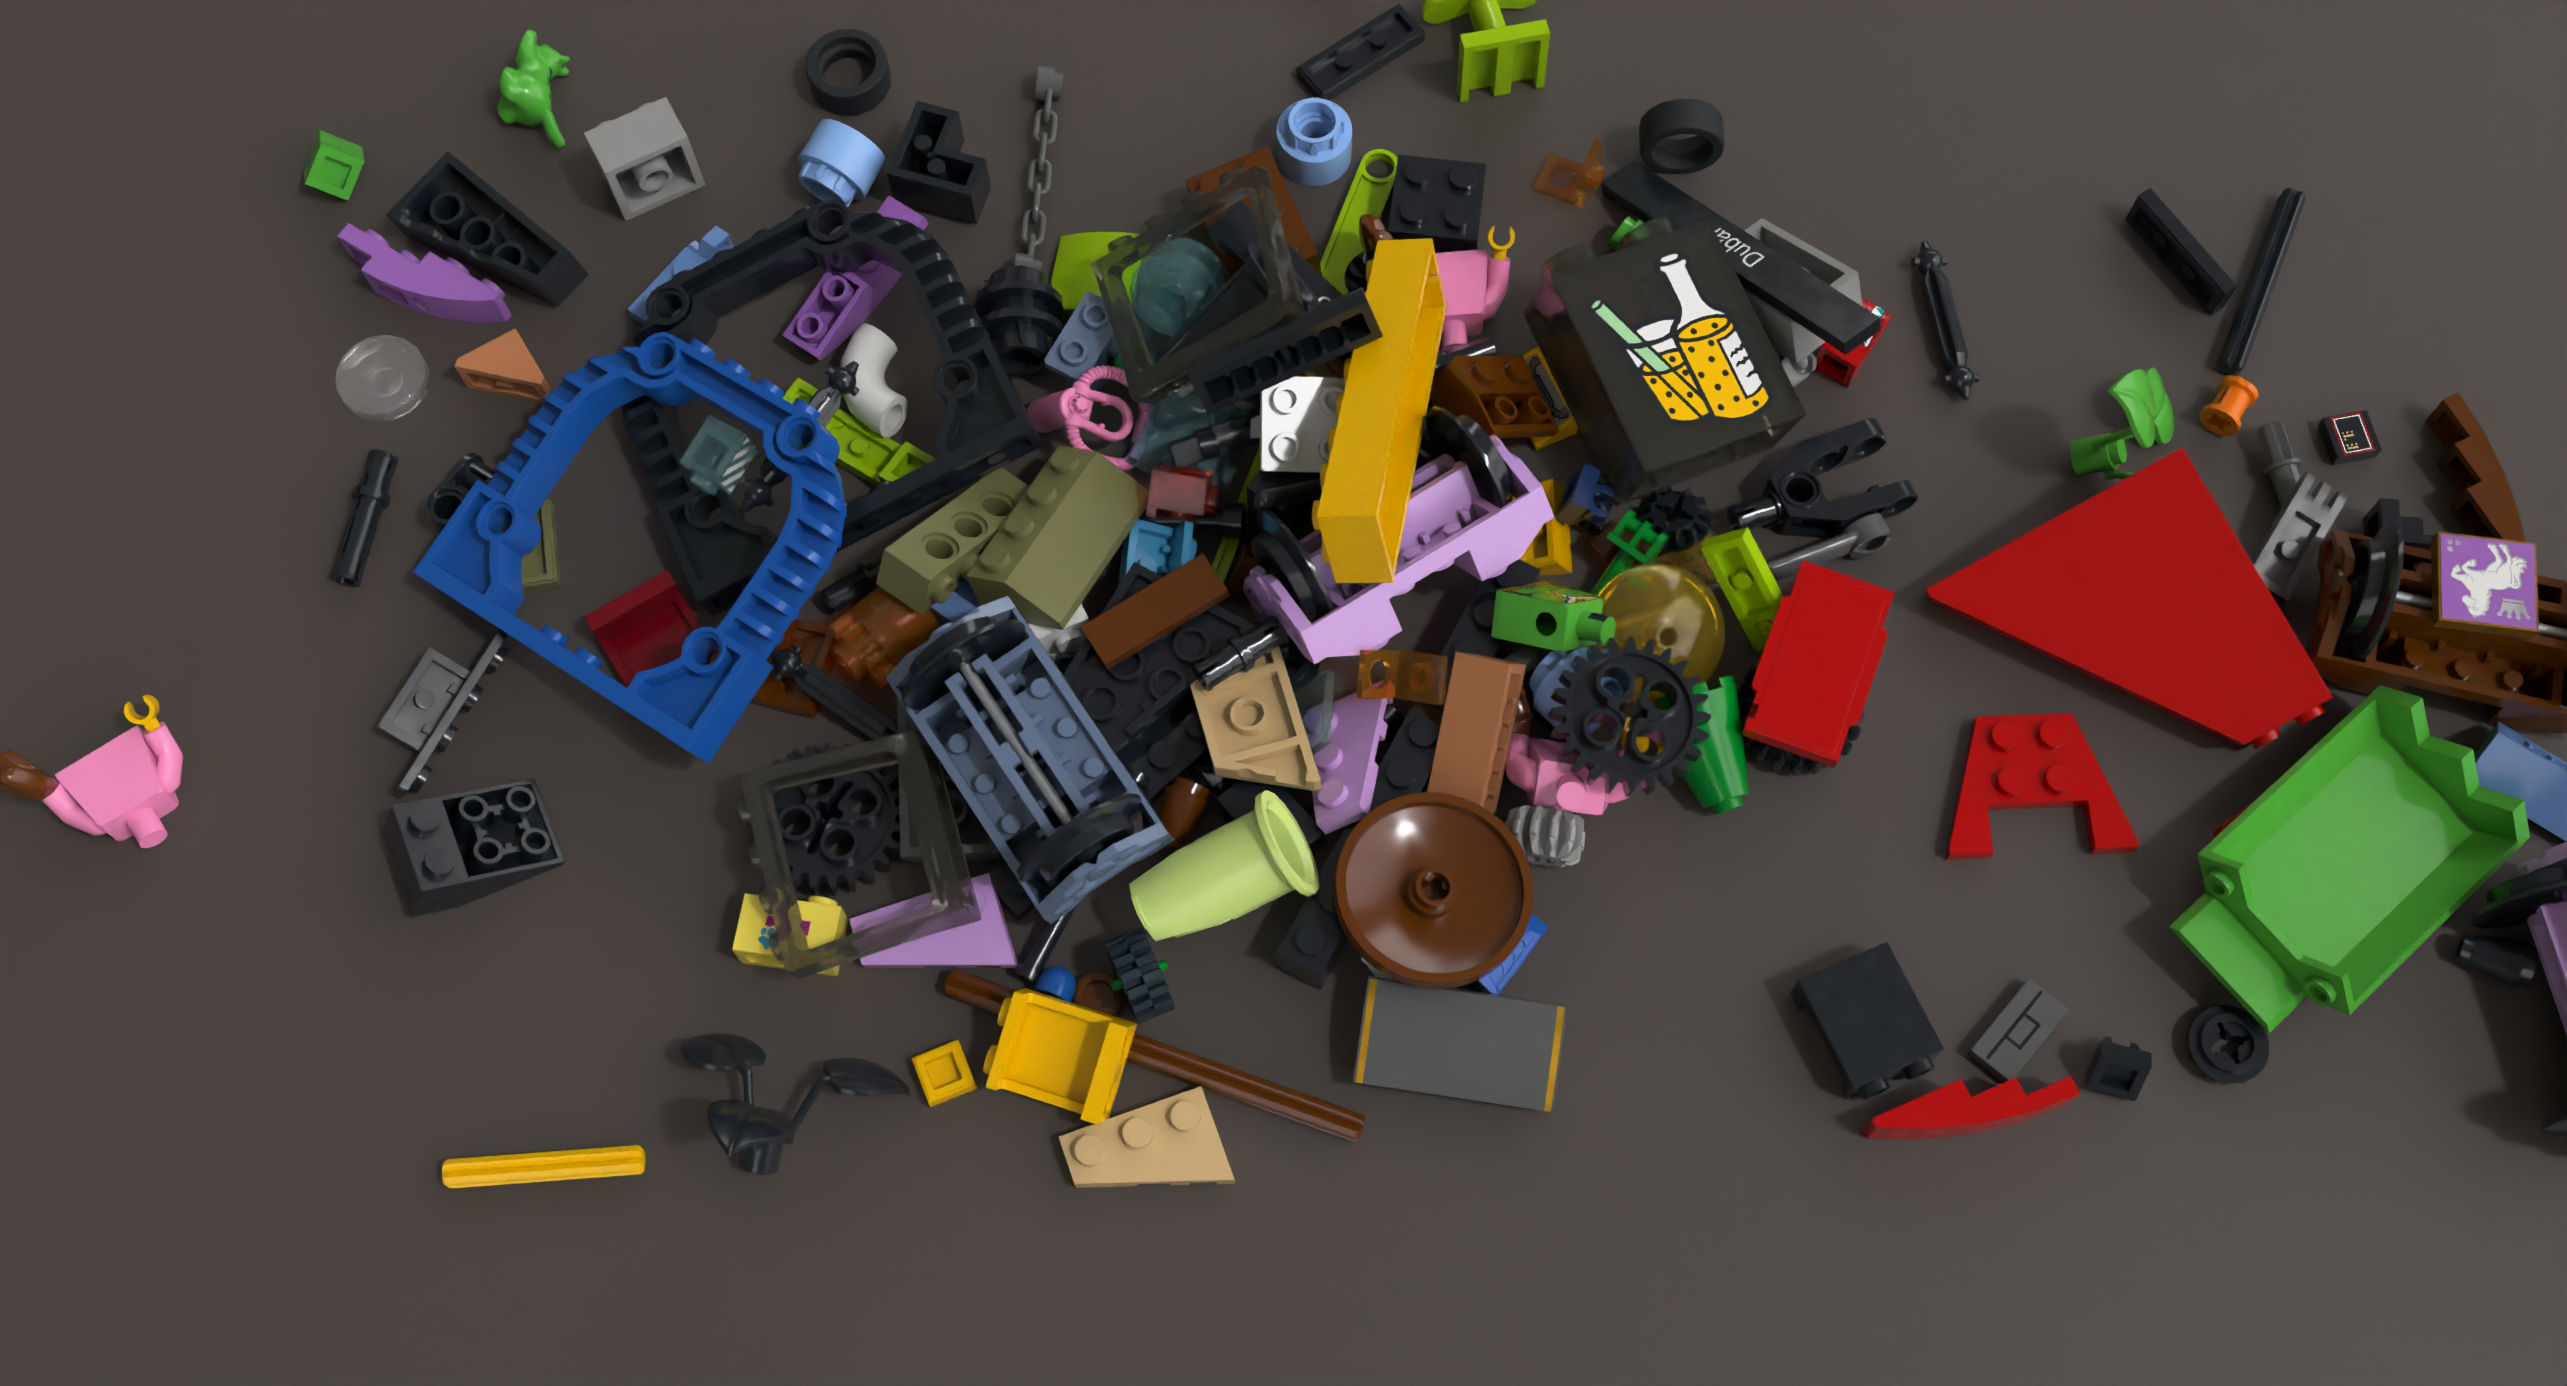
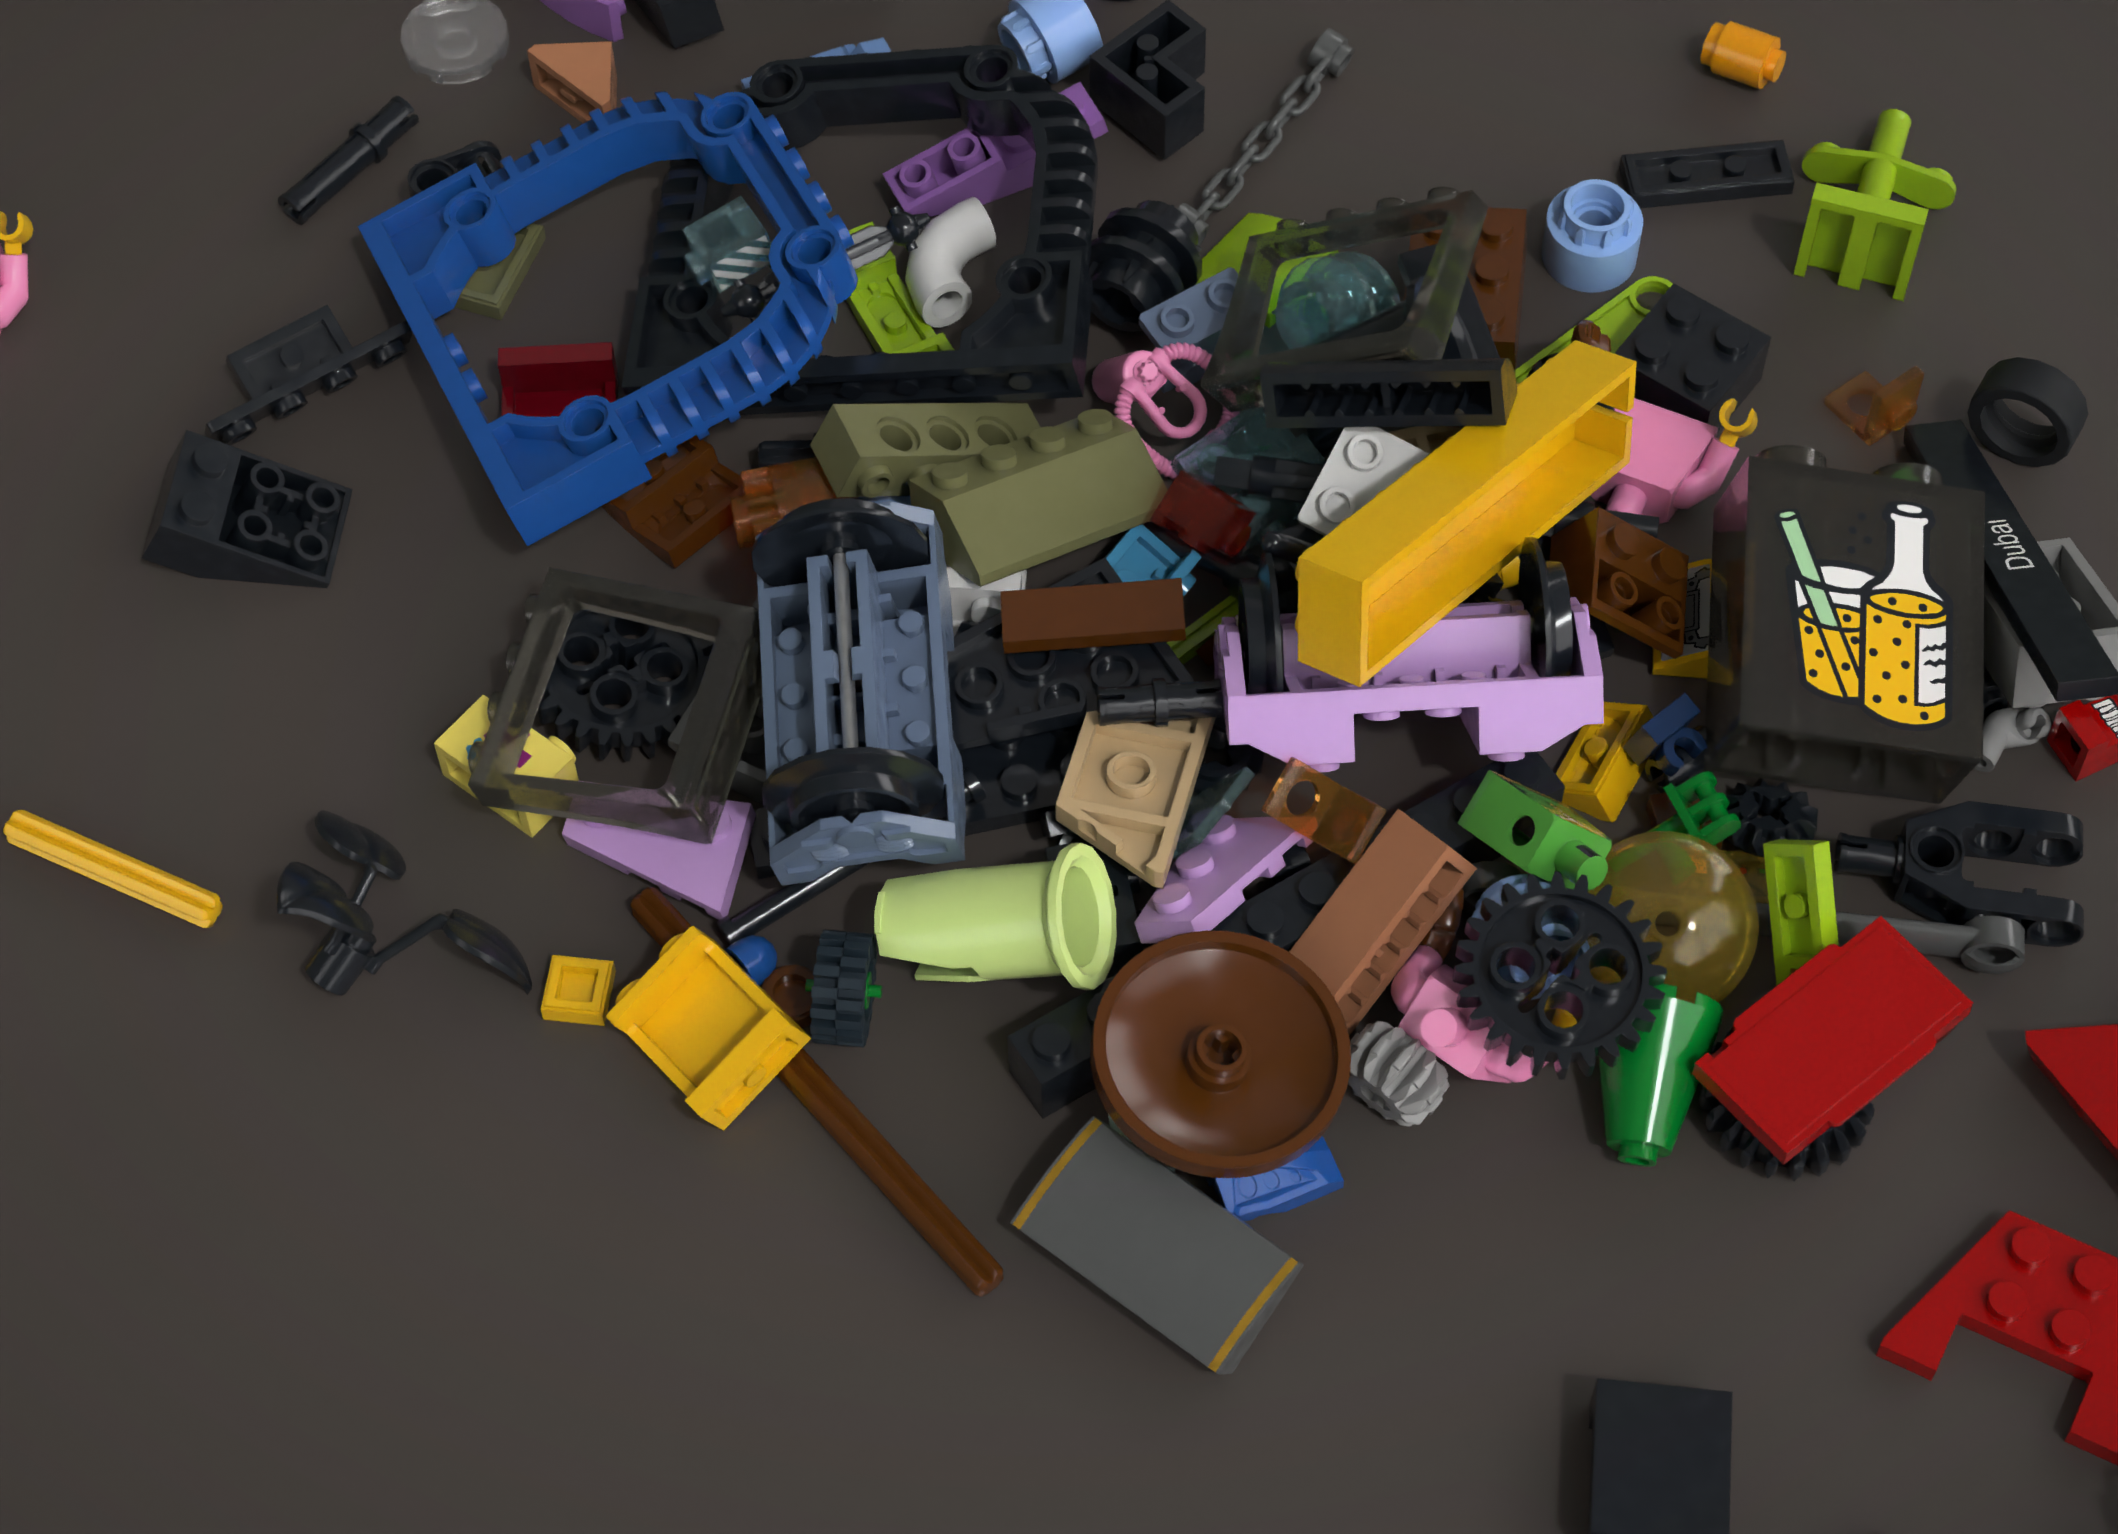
camera: 30 degrees right, 10 degrees down
(832, 694) = (700, 538): black wheel -> none
(1150, 1145) = (757, 1179): tan wing -> none
(1182, 809) = (1006, 842): reddish brown cone -> none

